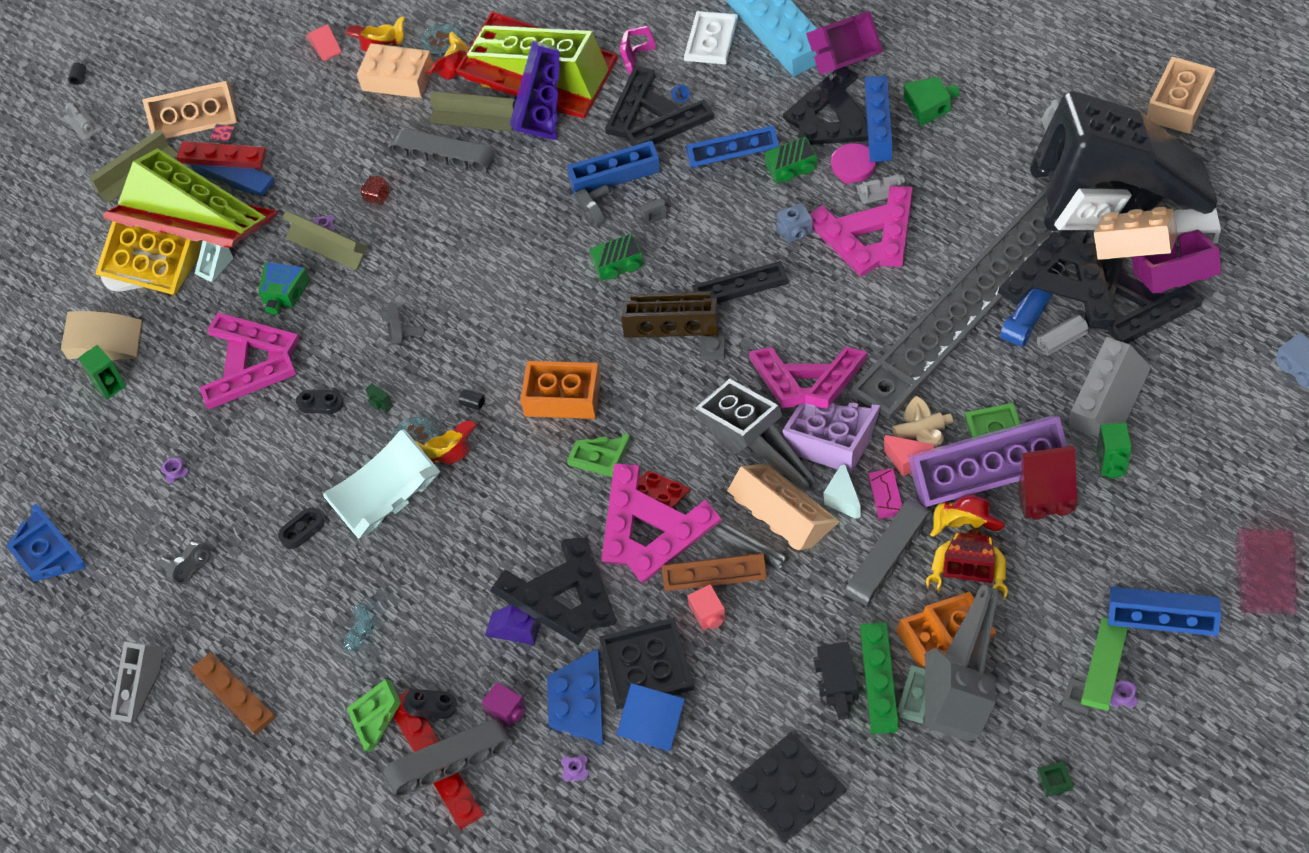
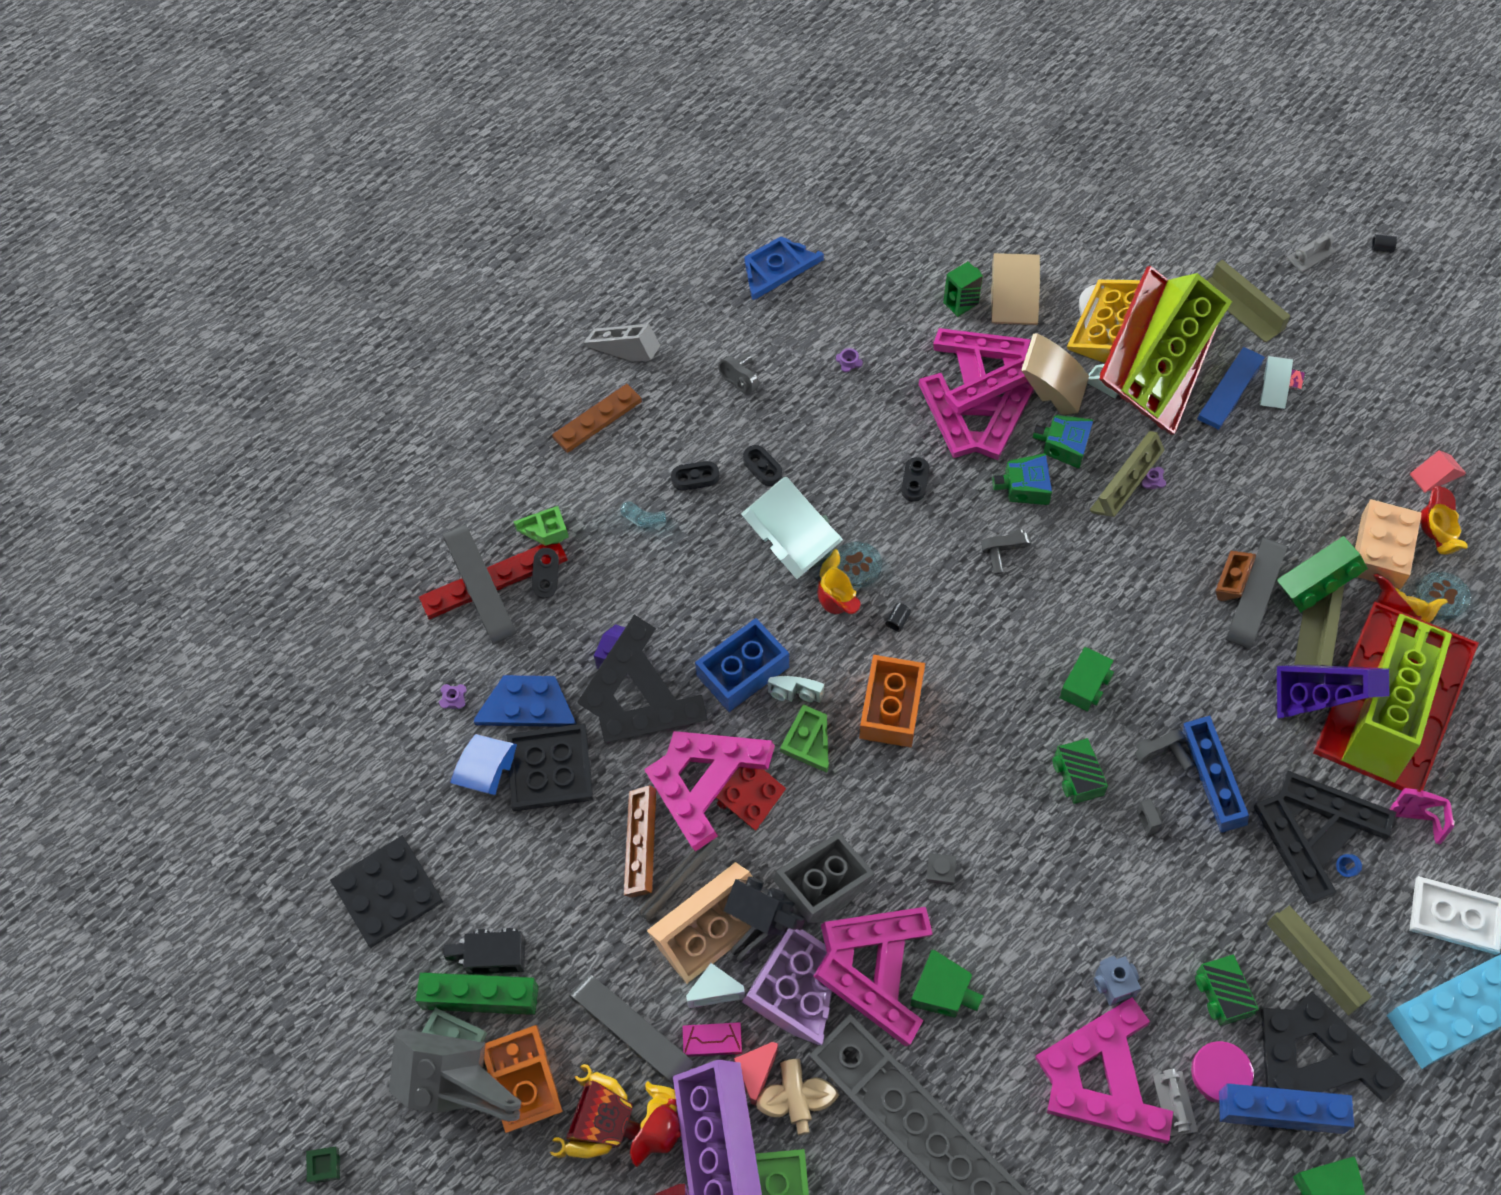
camera: 90 degrees right, 5 degrees up
(173, 364) = (969, 349): none -> dark pink plate
(191, 109) = (1326, 347): light nougat slope -> none
(215, 289) = (1055, 375): none -> tan slope
(221, 155) = (1250, 375): red plate -> none
(225, 135) = (1276, 382): none -> light aqua slope
(311, 588) = (694, 473): none -> black plate
(326, 312) = (1026, 480): none -> green torso
(375, 190) = (1197, 525): clear red plate -> none
(378, 398) = (908, 529): dark green plate -> none
(427, 163) = (1235, 575): none -> dark orange slope
(430, 101) = (1322, 574): none -> brick
(504, 705) = (529, 636): magenta brick -> none
(530, 258) = (1086, 679): none -> green brick
(530, 510) = (742, 664): none -> blue brick
(550, 467) = (787, 686): none -> light aqua slope
(670, 315) = (985, 822): dark brown brick -> none
(707, 608) = (597, 829): coral brick -> none
(731, 146) = (1247, 917): blue brick -> none
(744, 282) = (1030, 908): black plate -> none
(759, 109) = (1319, 960): none -> olive panel
(775, 445) = (762, 907): none -> black hinge
(815, 334) = (944, 987): none -> green torso
(844, 42) = (1424, 1080): magenta piece -> none

